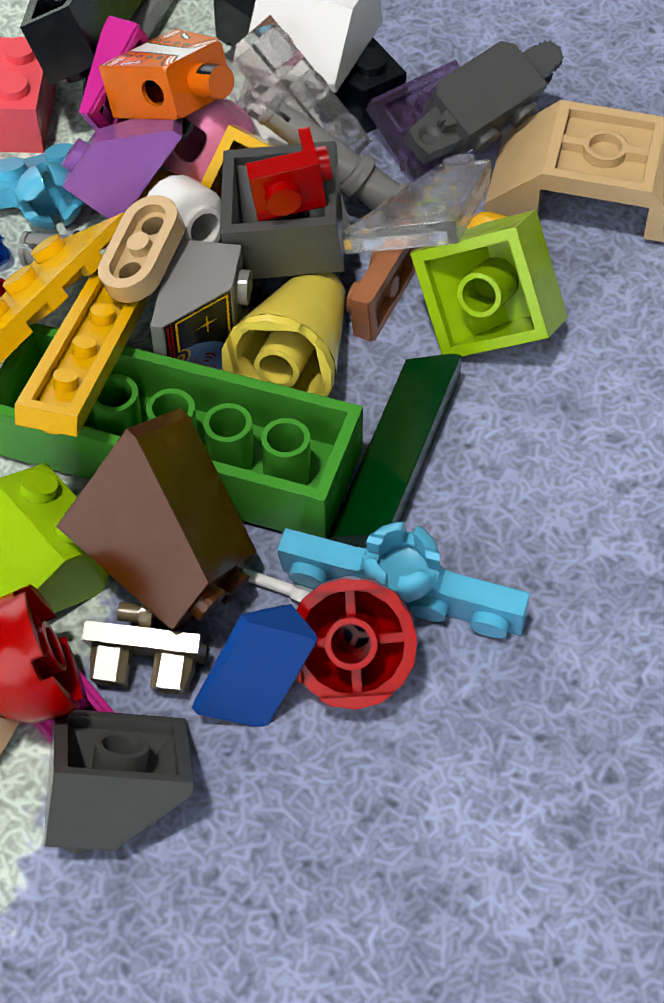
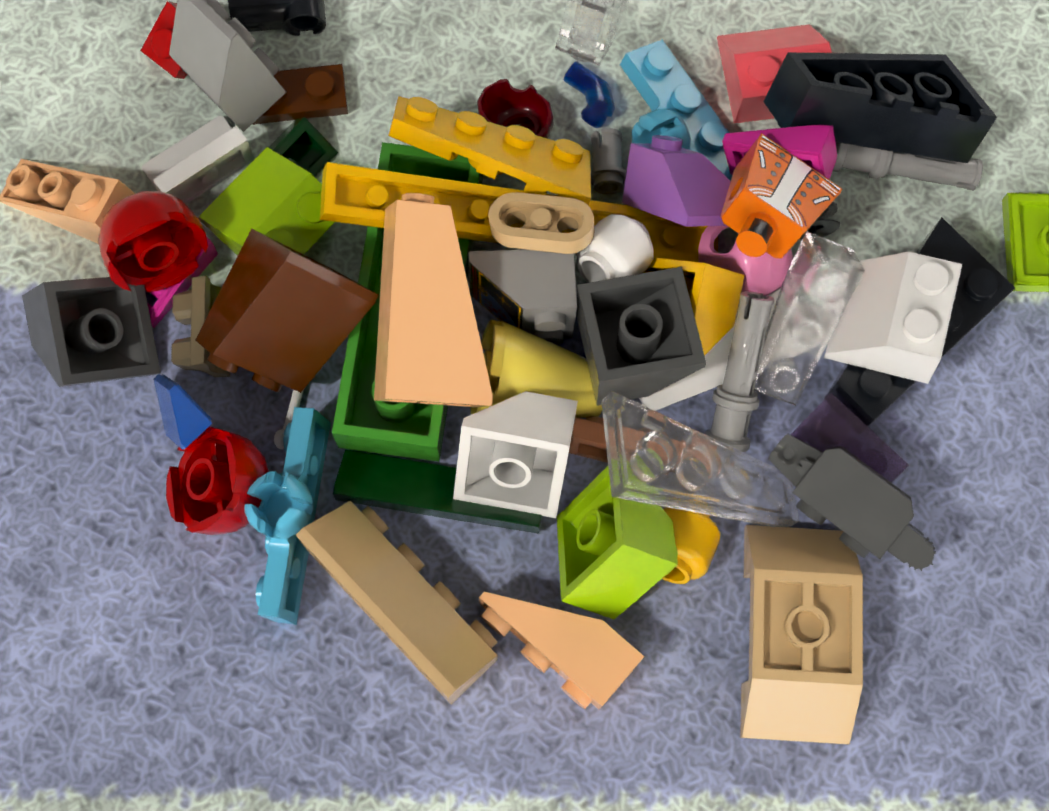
camera: 75 degrees right, 20 degrees up
(212, 356) = (426, 313): none -> light nougat slope
(290, 181) = (617, 327): red bracket -> none
(389, 334) = (516, 453): none -> white slope
(533, 485) = (399, 599): none -> tan slope
(597, 348) = (576, 646): none -> light nougat slope

